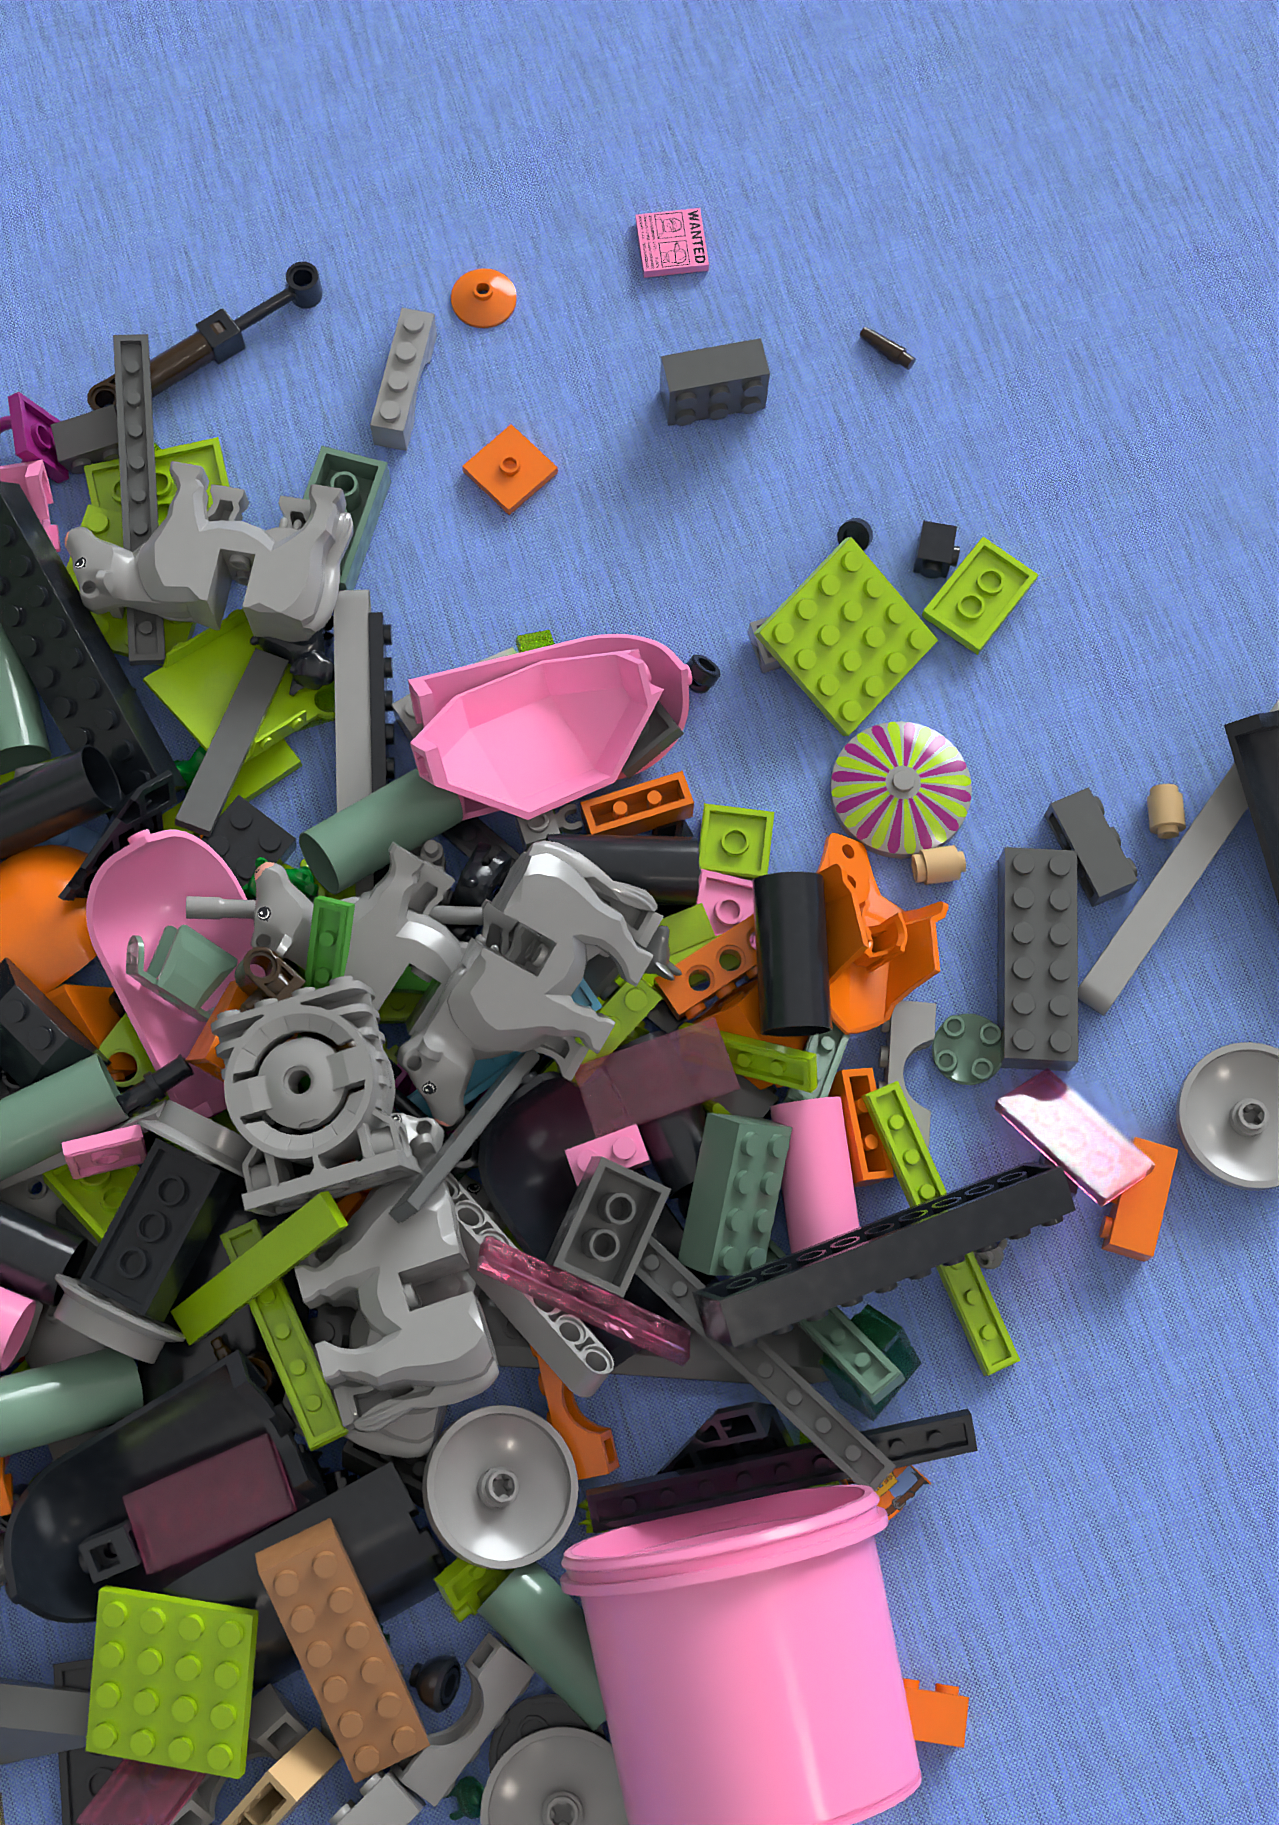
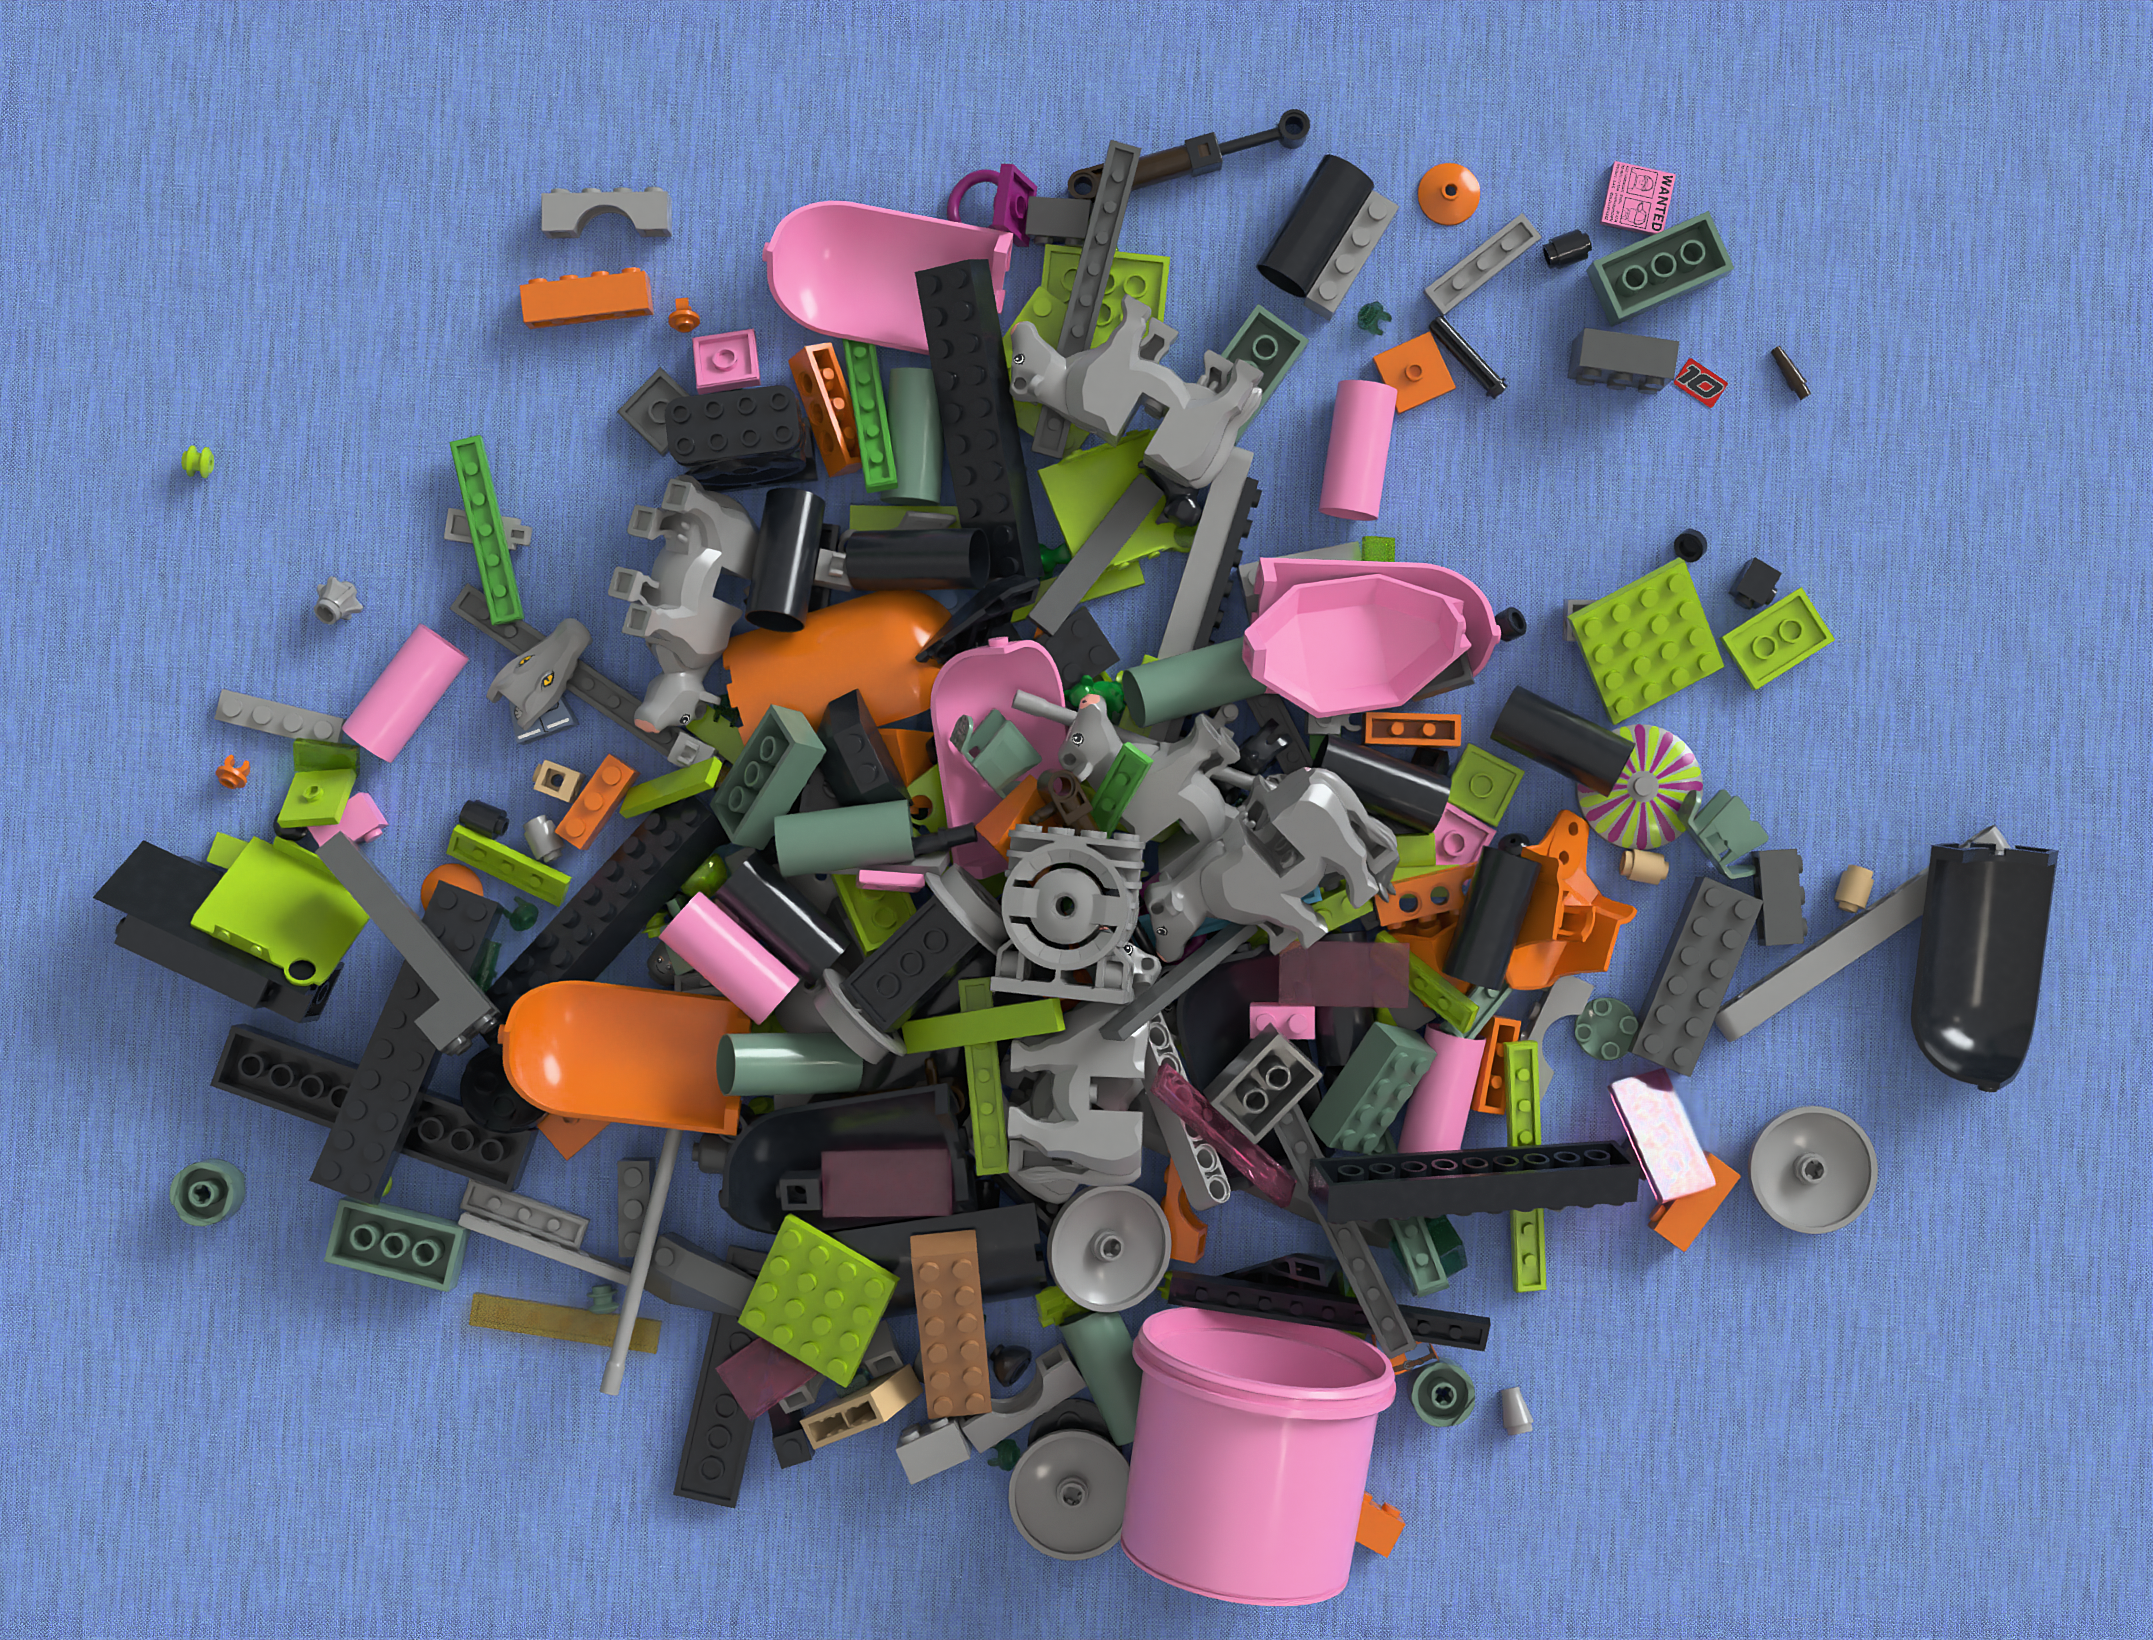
camera: 25 degrees right, 15 degrees up
(253, 1773) = (859, 1381): none -> clear green plate
(355, 360) = (1315, 225): none -> black piece
(444, 430) = (1369, 316): none -> clear green plate
(477, 554) = (1358, 450): none -> bright pink piece
(540, 347) = (1482, 264): none -> light grey plate
(594, 452) = (1468, 357): none -> black axle
(619, 306) = (1567, 249): none -> black brick
(718, 290) = (1660, 269): none -> sand green brick
(799, 761) = (1562, 741): none -> black piece
(802, 387) = (1700, 383): none -> sticker
(967, 1510) = (1435, 1408): none -> sand green brick
(1003, 797) = (1722, 826): none -> sand green piece
(1043, 1516) = (1515, 1412): none -> light grey cone

